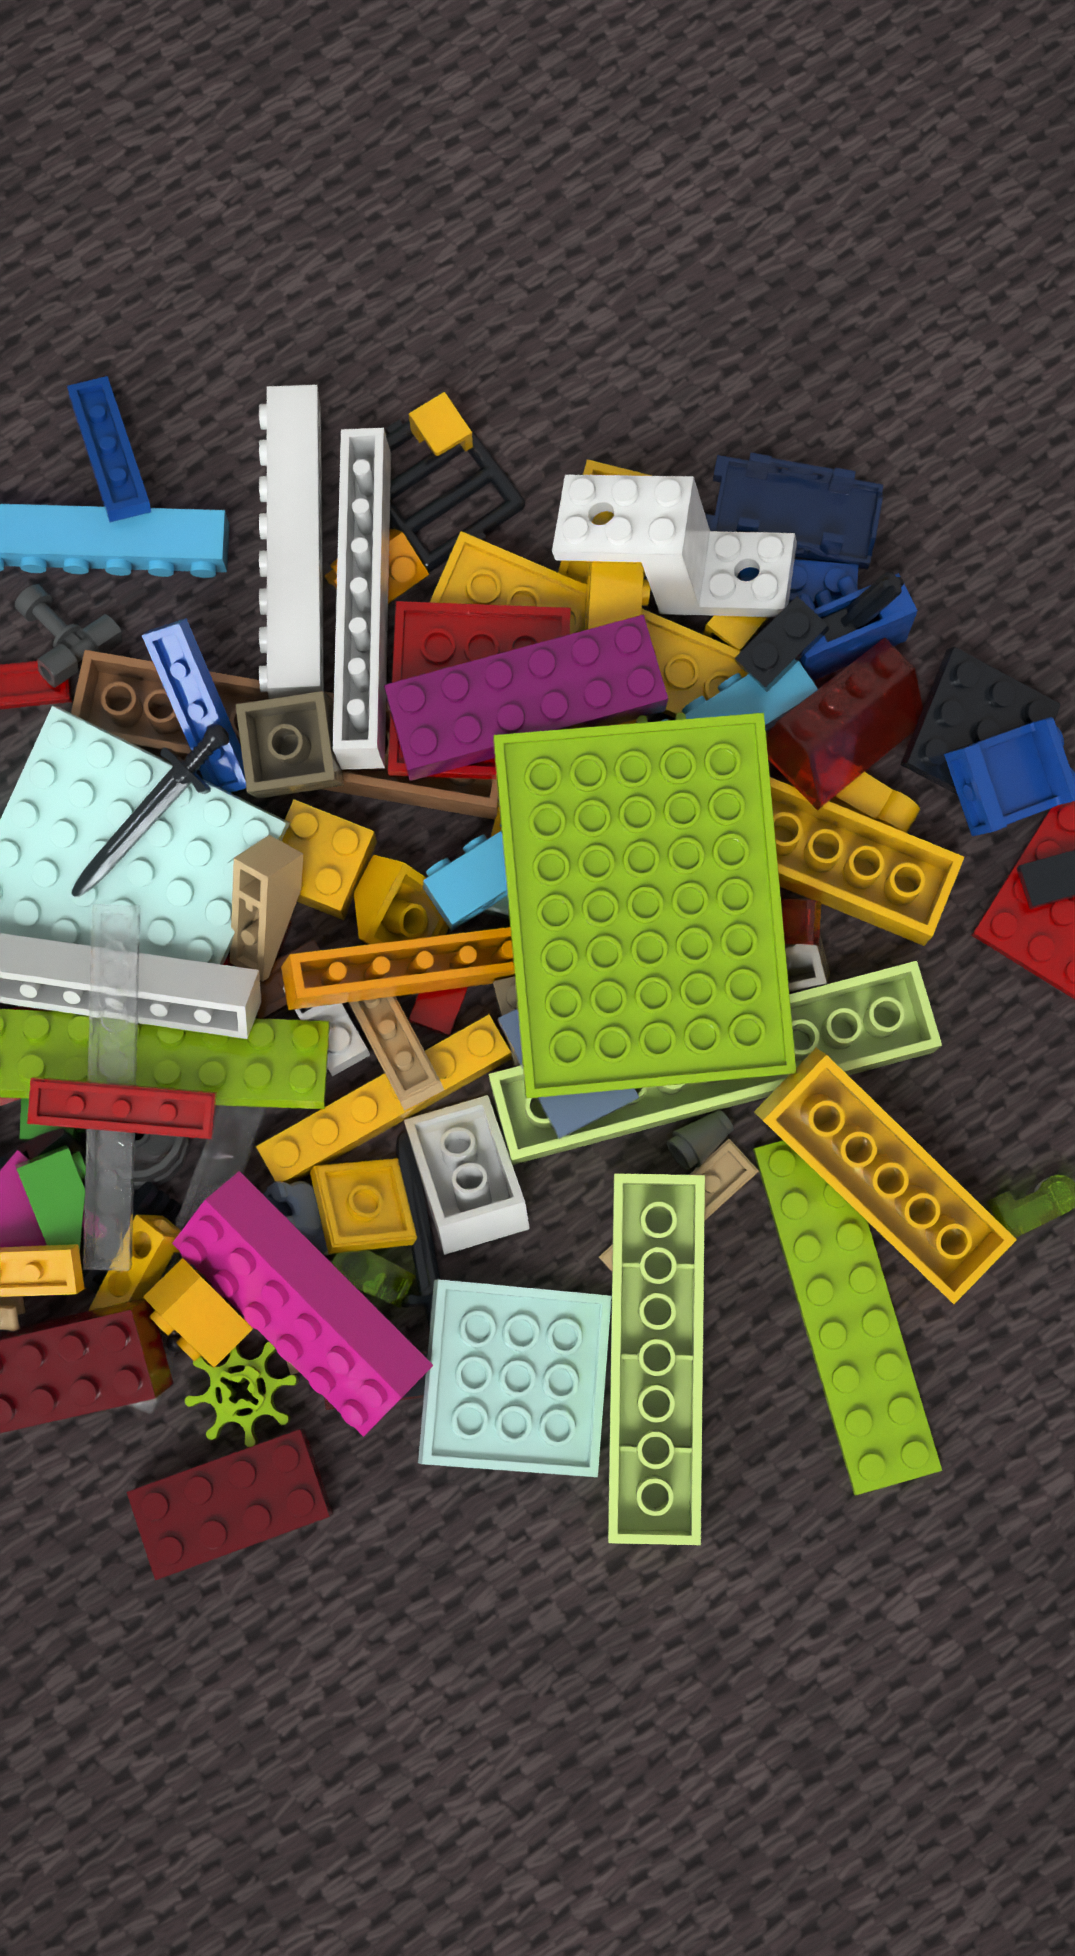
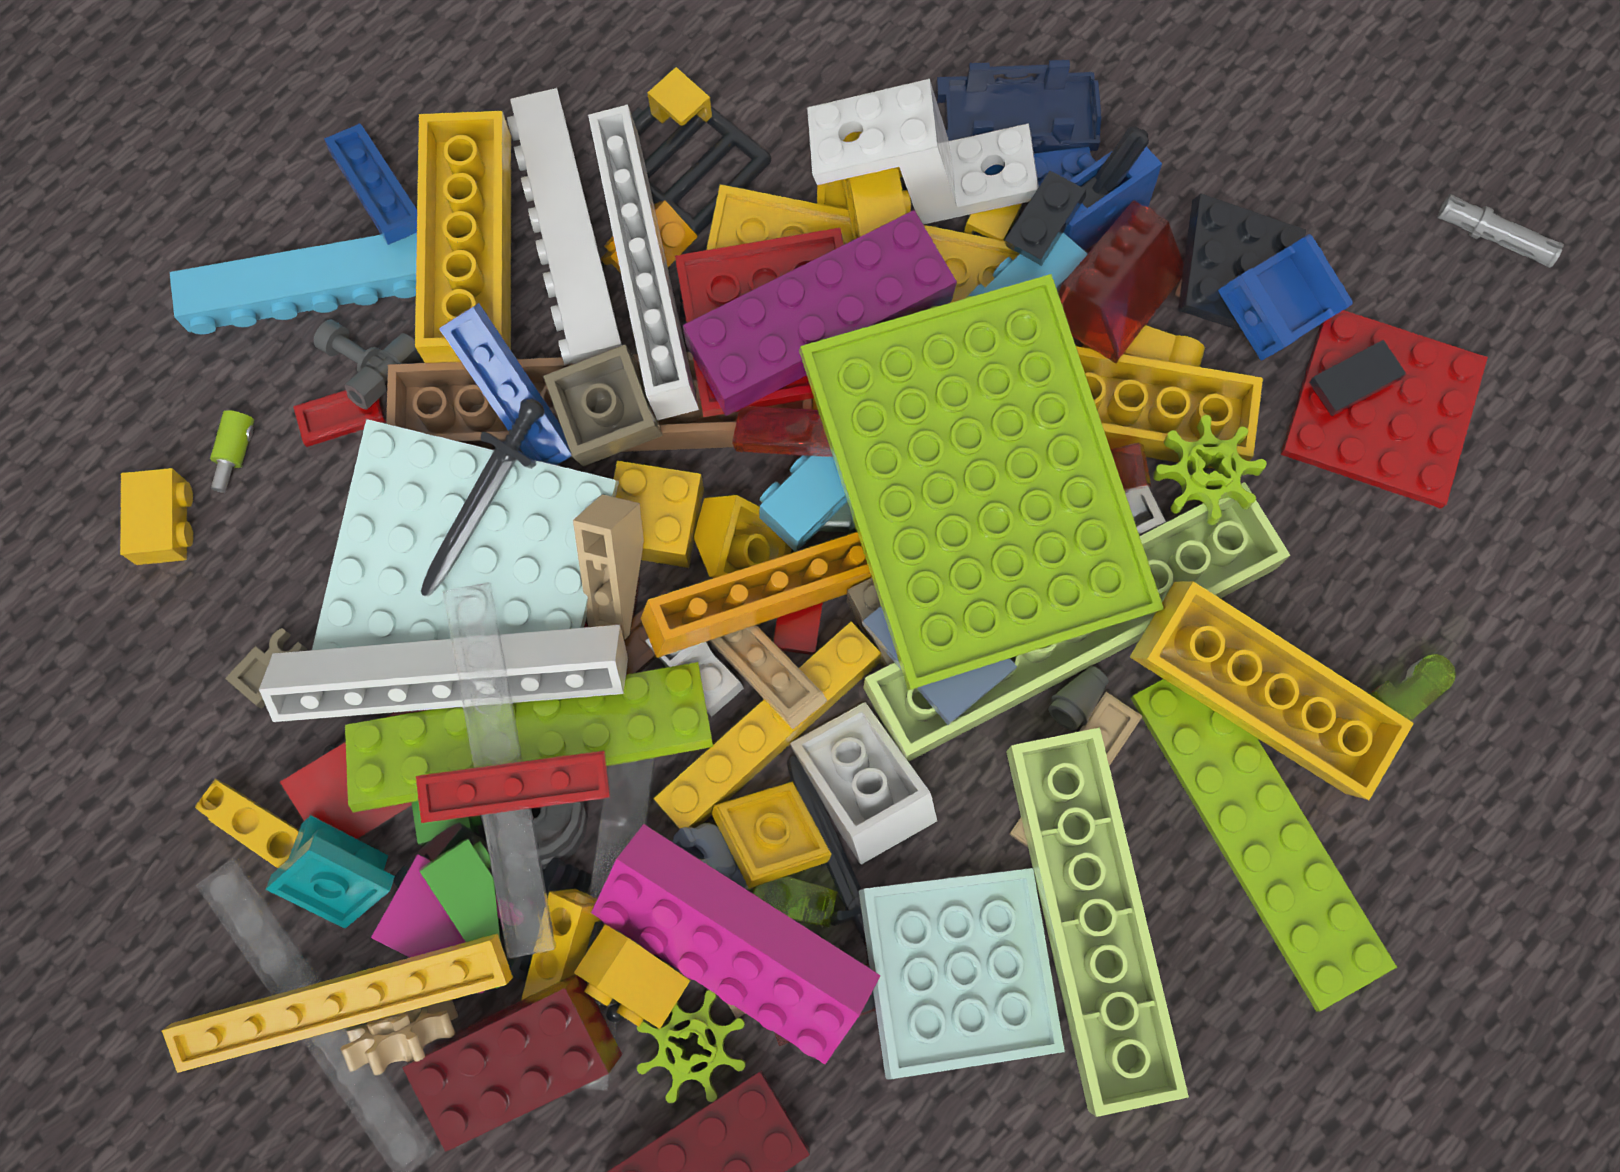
camera: 10 degrees left, 5 degrees down
(188, 523) = (462, 225): none -> yellow brick
(458, 808) = (780, 432): none -> clear red plate
(882, 922) = (1218, 454): none -> lime gear

